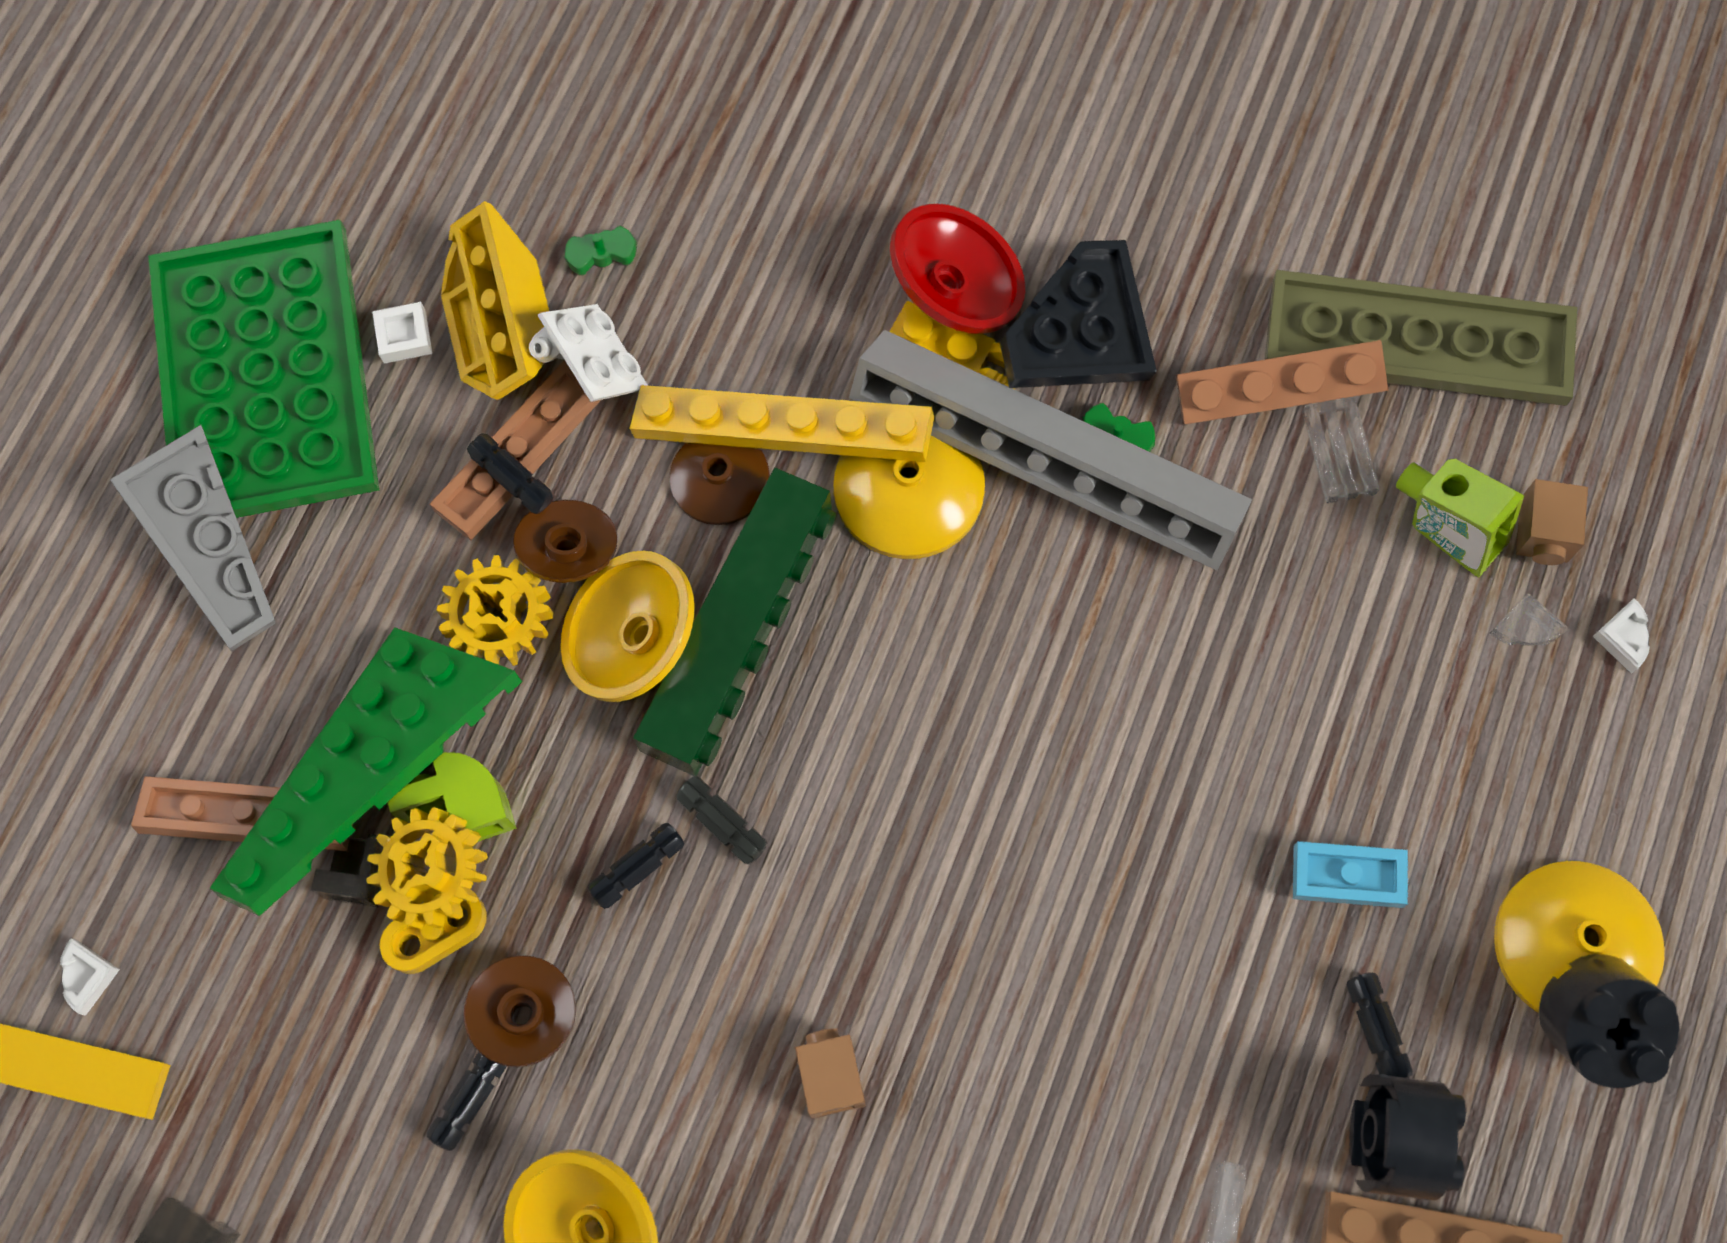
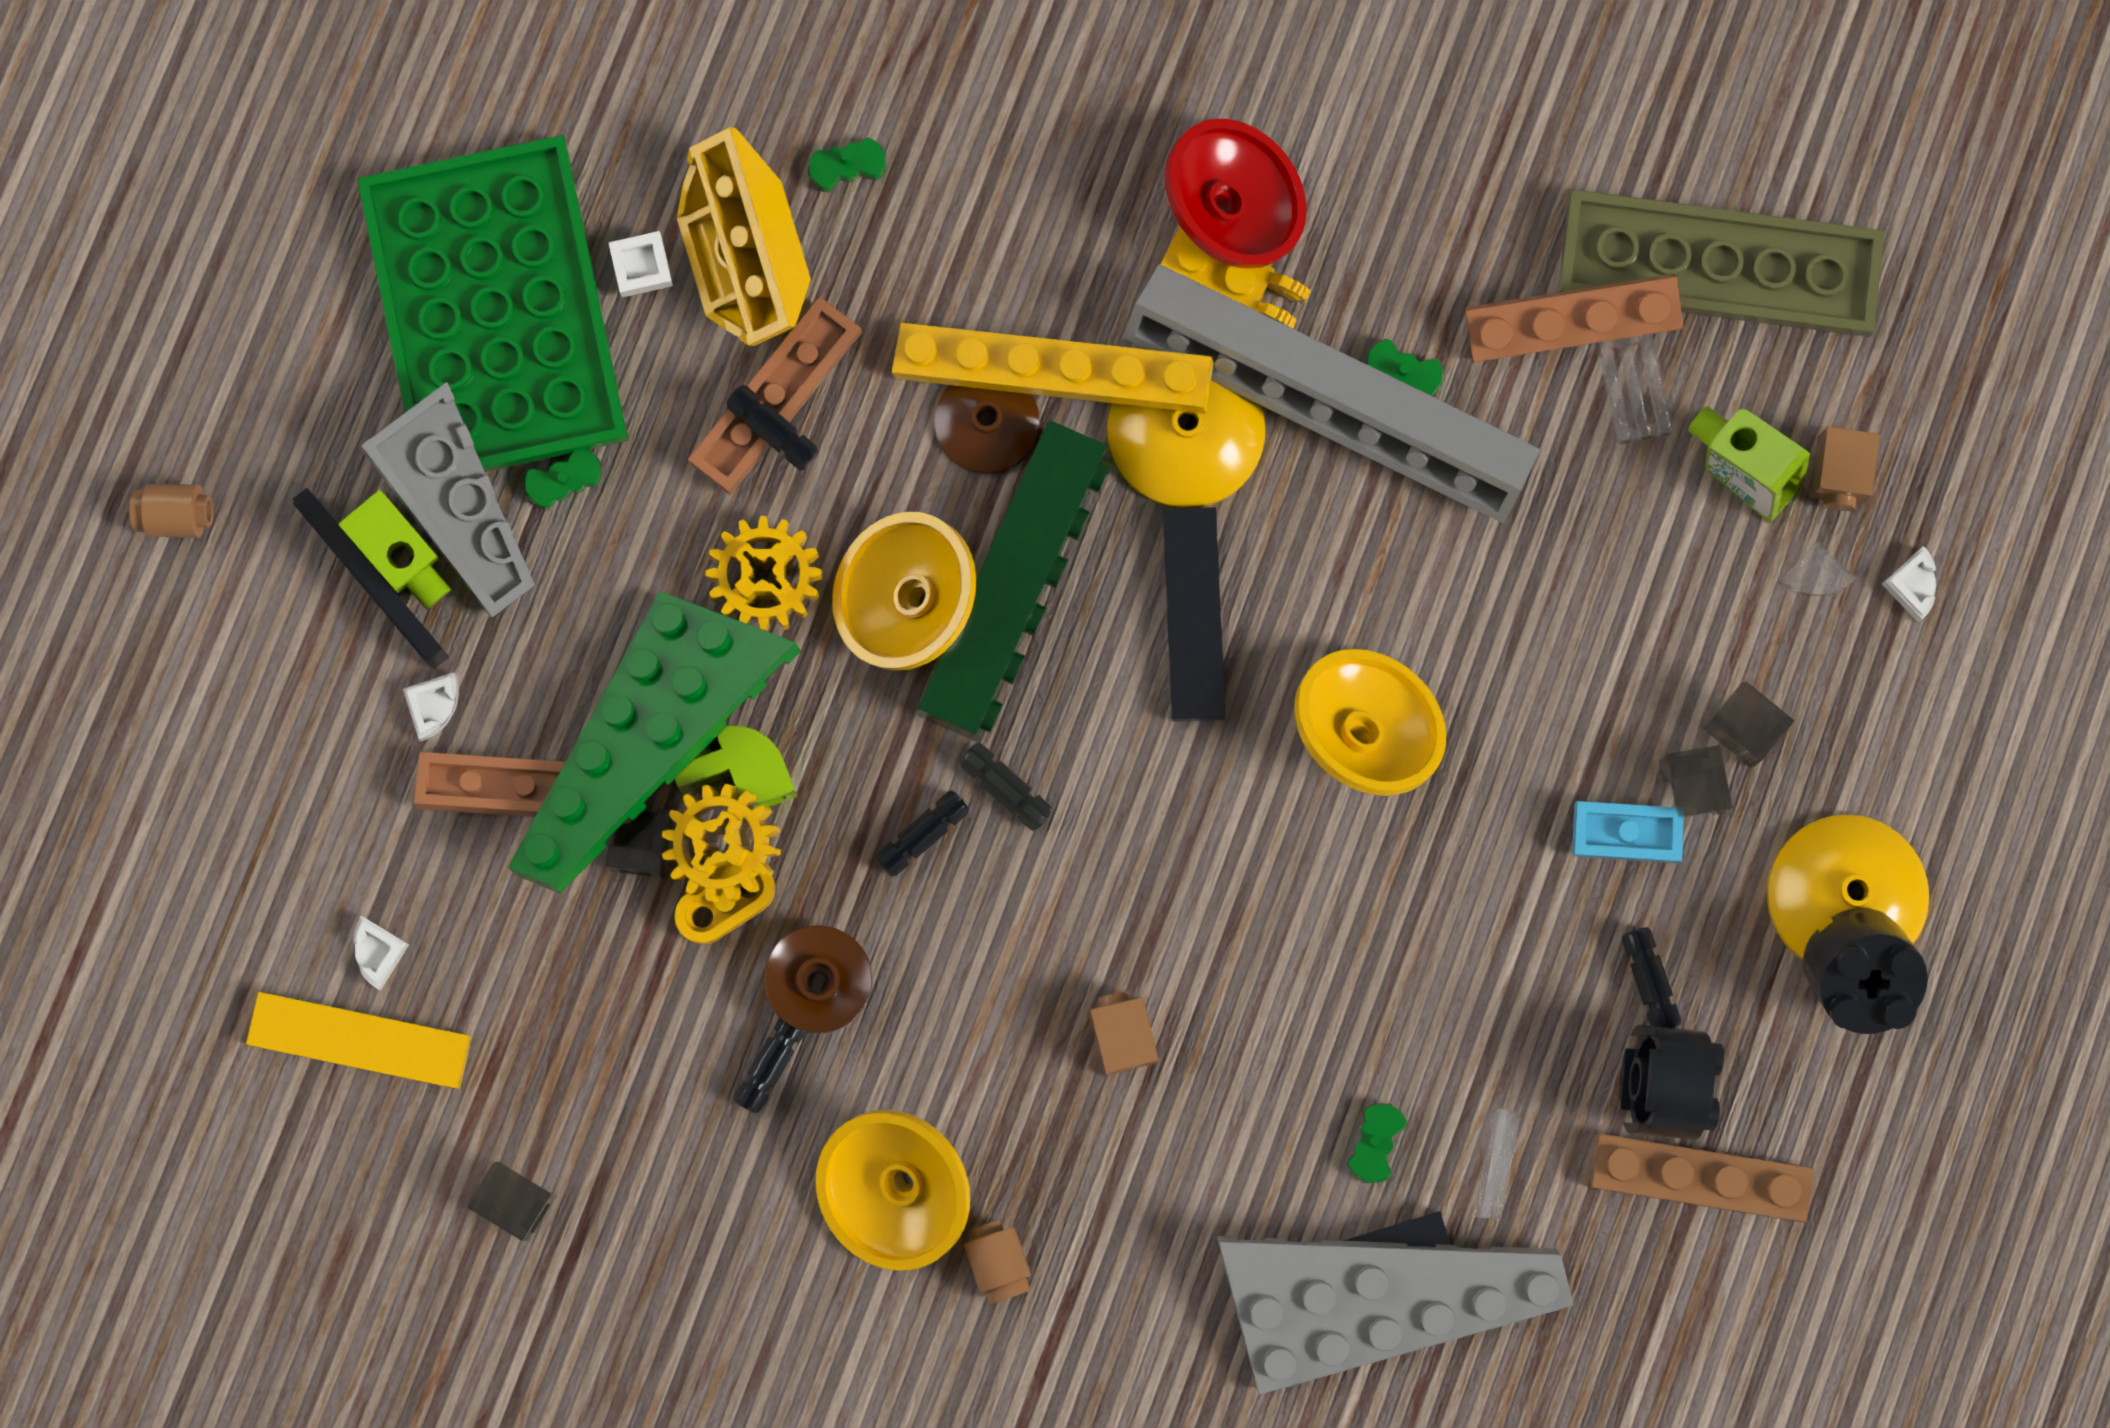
camera: 10 degrees left, 10 degrees up
(118, 612) = (370, 578): none -> black tile
(137, 578) = (381, 529): none -> lime torso
(167, 733) = (432, 704): none -> white tile
(314, 524) = (563, 478): none -> green piece
(562, 526) = (837, 480): reddish brown dish -> none
(591, 350) = (850, 290): white hinge -> none
(912, 657) = (1193, 614): none -> black tile
(1082, 324) = (1367, 252): black plate -> none
(1086, 759) = (1382, 707): none -> yellow dish
(1098, 1177) = (1380, 1124): none -> green piece
(1420, 822) = (1697, 781): none -> clear smoke panel
(1469, 768) = (1748, 724): none -> clear smoke panel

